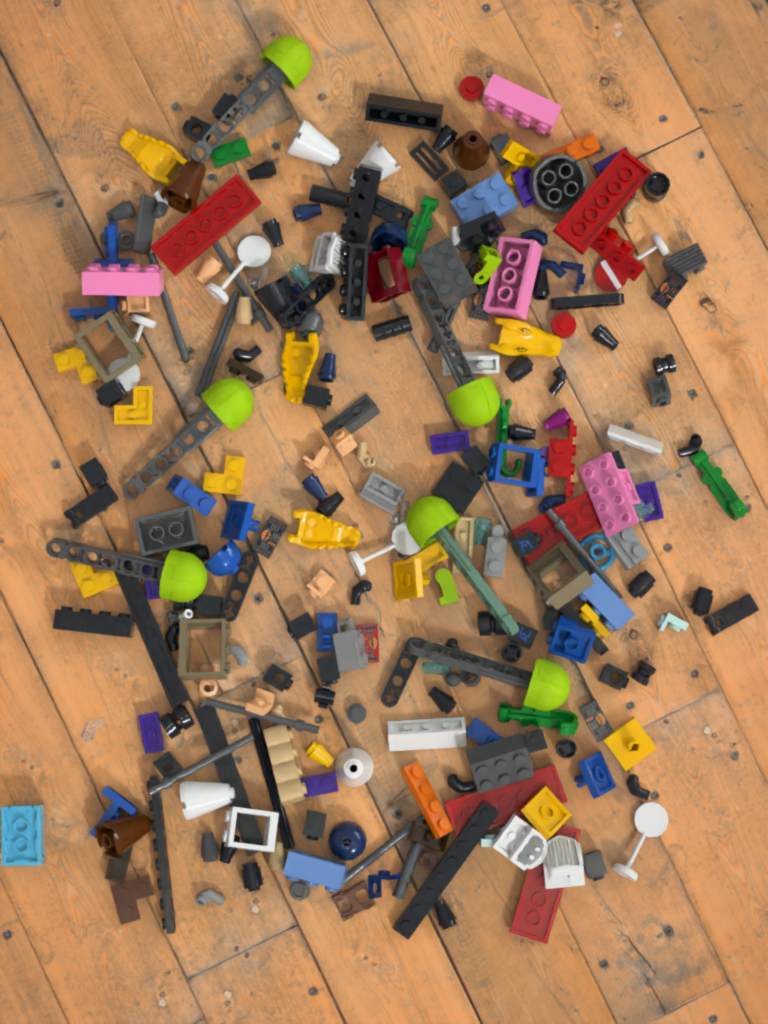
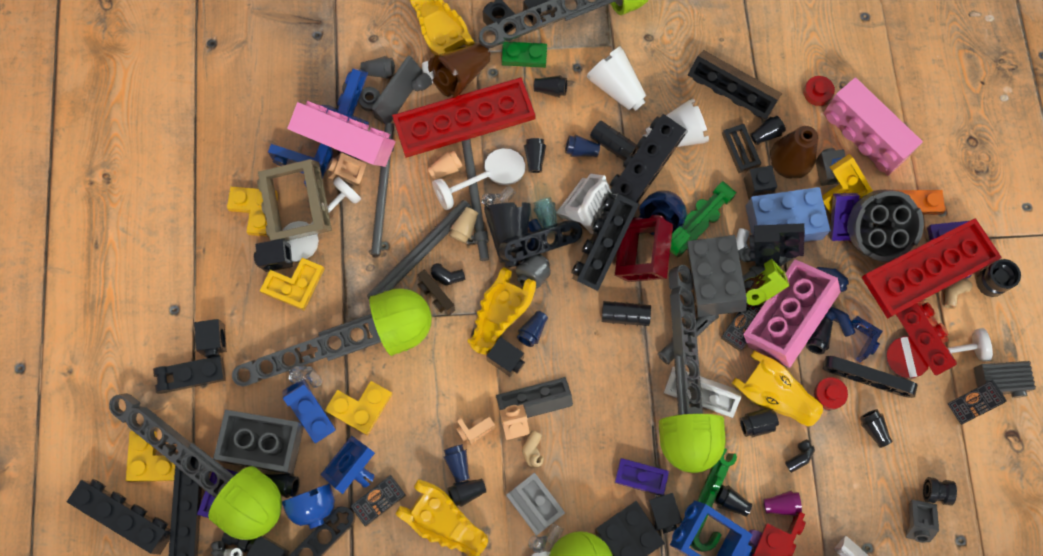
camera: 20 degrees right, 10 degrees down
(178, 468) = (298, 373): none -> clear arm
(388, 210) = (674, 180): black plate -> none

